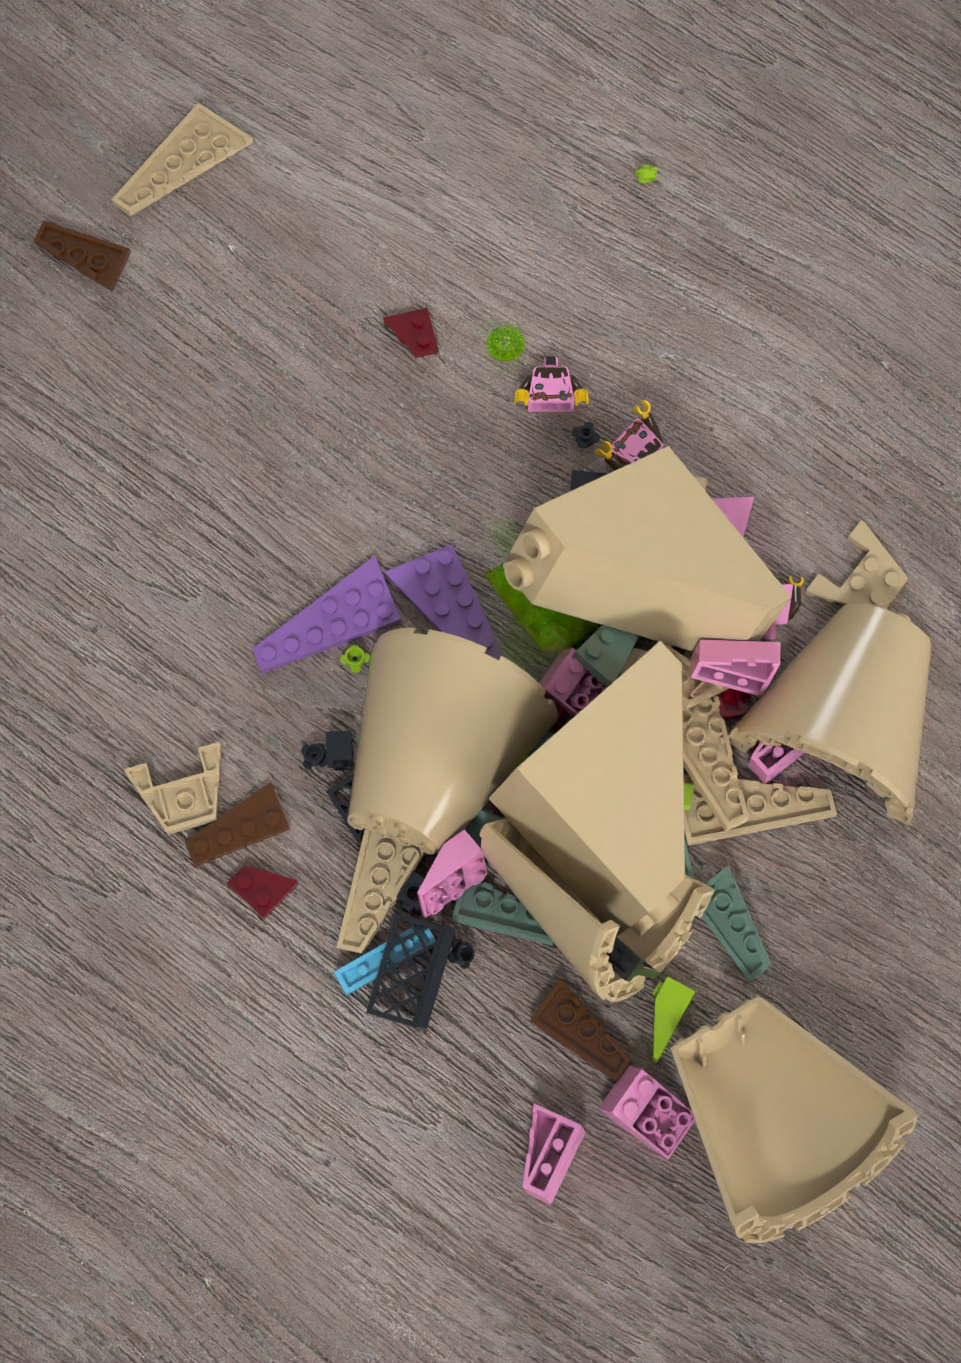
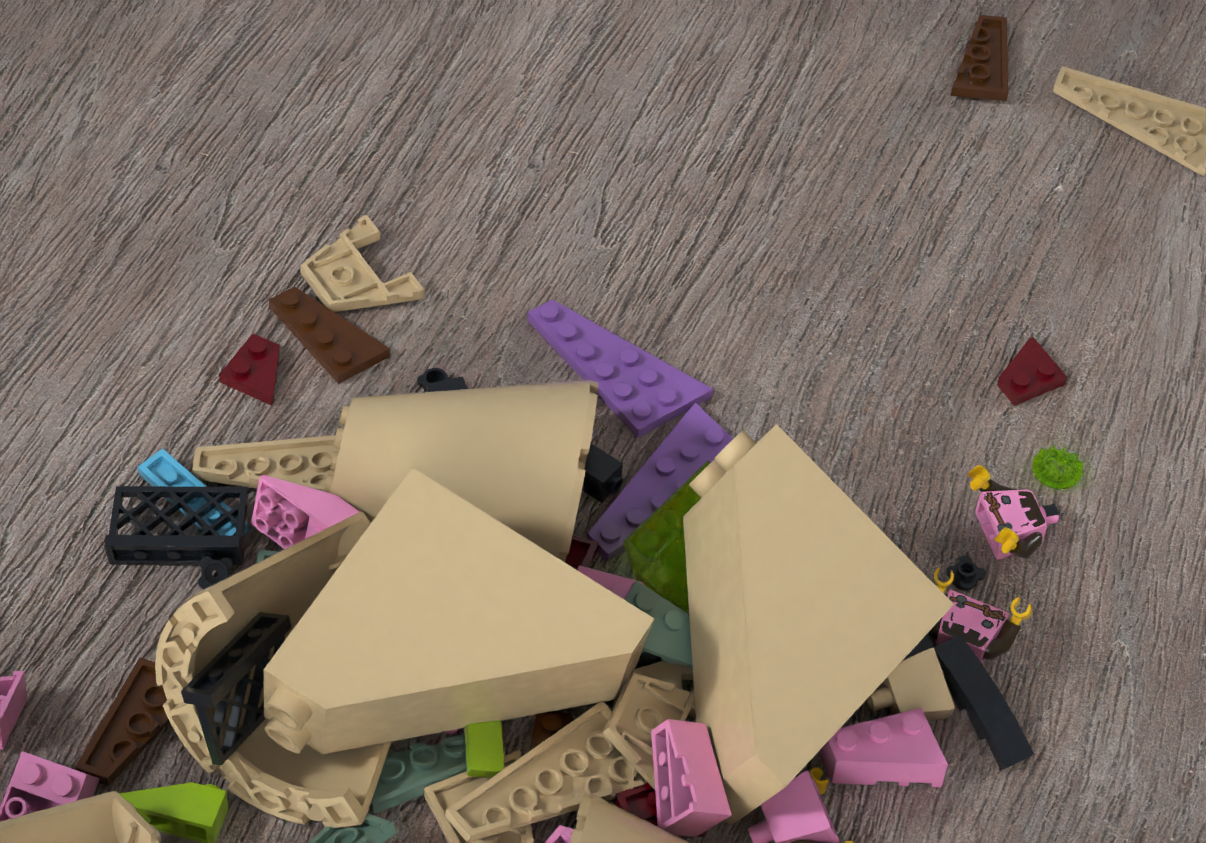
camera: 70 degrees right, 20 degrees down
(713, 457) = (983, 702): none -> black slope

